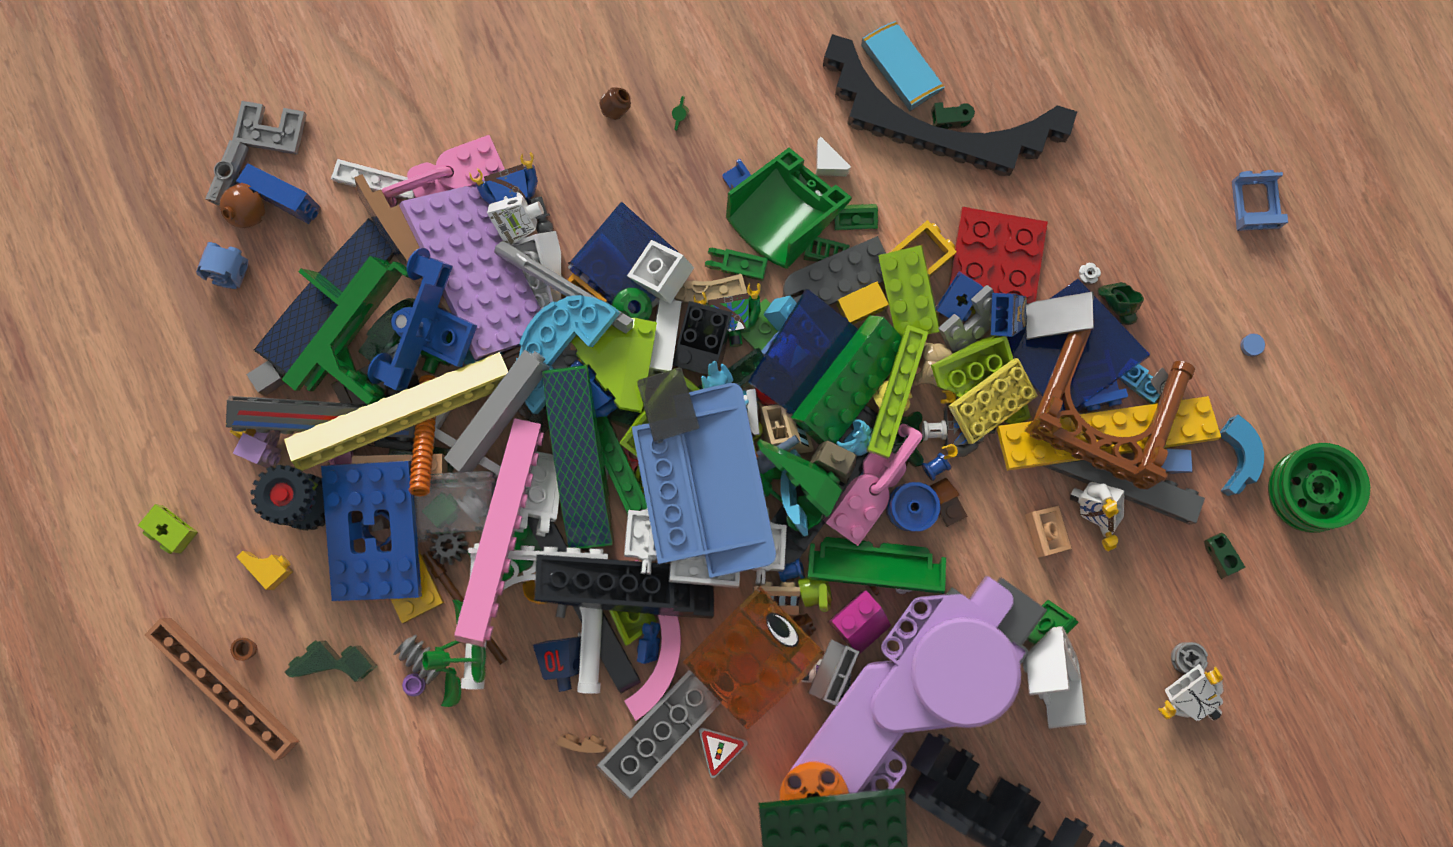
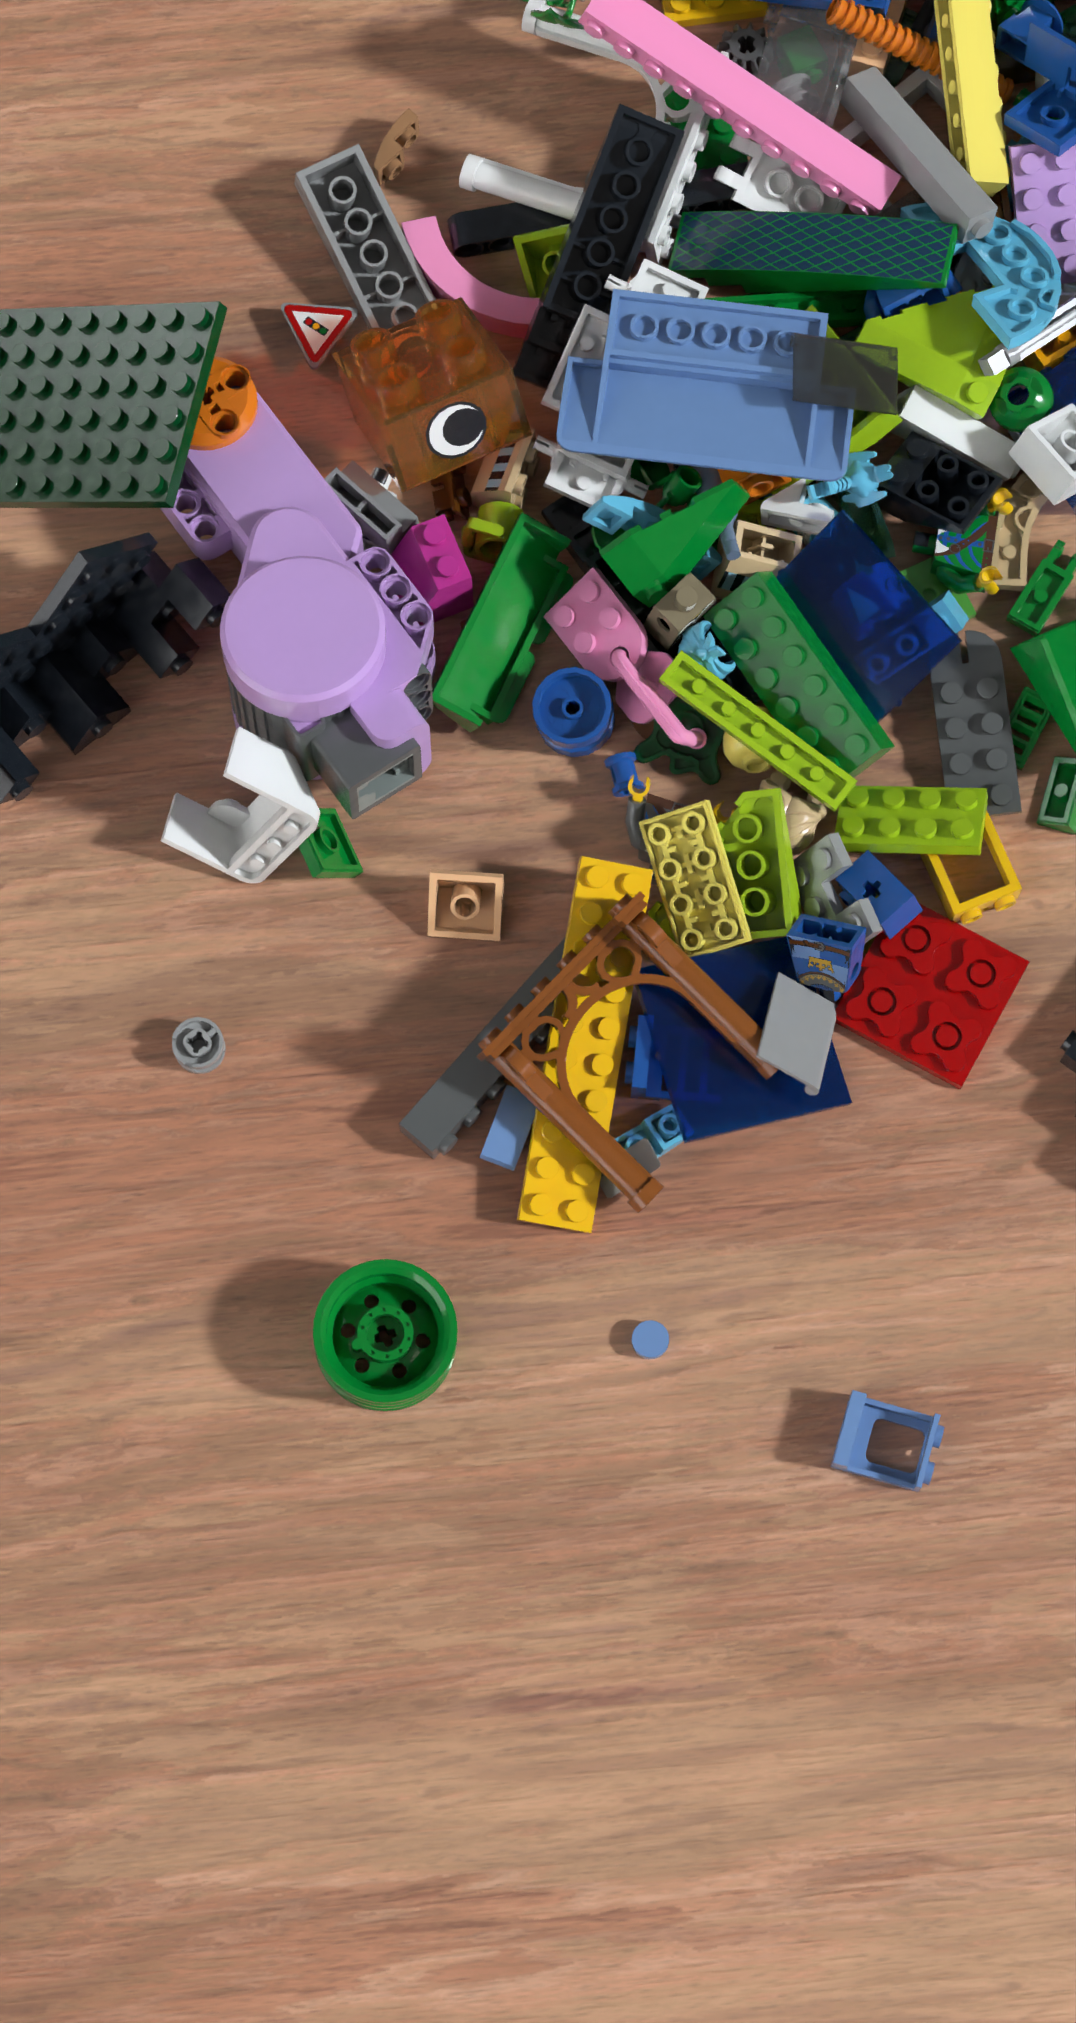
camera: 110 degrees right, 5 degrees down
(439, 572) = (710, 32): reddish brown bar -> none
(559, 660) = (525, 145): dark blue torso -> none
(649, 645) = (501, 275): blue plate -> none
(792, 570) = (541, 504): blue bush -> none
(862, 303) = (918, 749): yellow panel -> none
(941, 427) = (683, 786): white bush -> none
(950, 506) = (563, 775): reddish brown slope -> none
(1085, 277) = (852, 1132): white plate -> none
(1103, 507) = (471, 991): torso -> none
(1122, 301) = (792, 1150): dark green hair -> none
(1195, 695) = (141, 1019): white torso -> none
(1223, 555) = (333, 1156): dark green leg -> none
(1249, 454) = (480, 1260): dark azure arch -> none

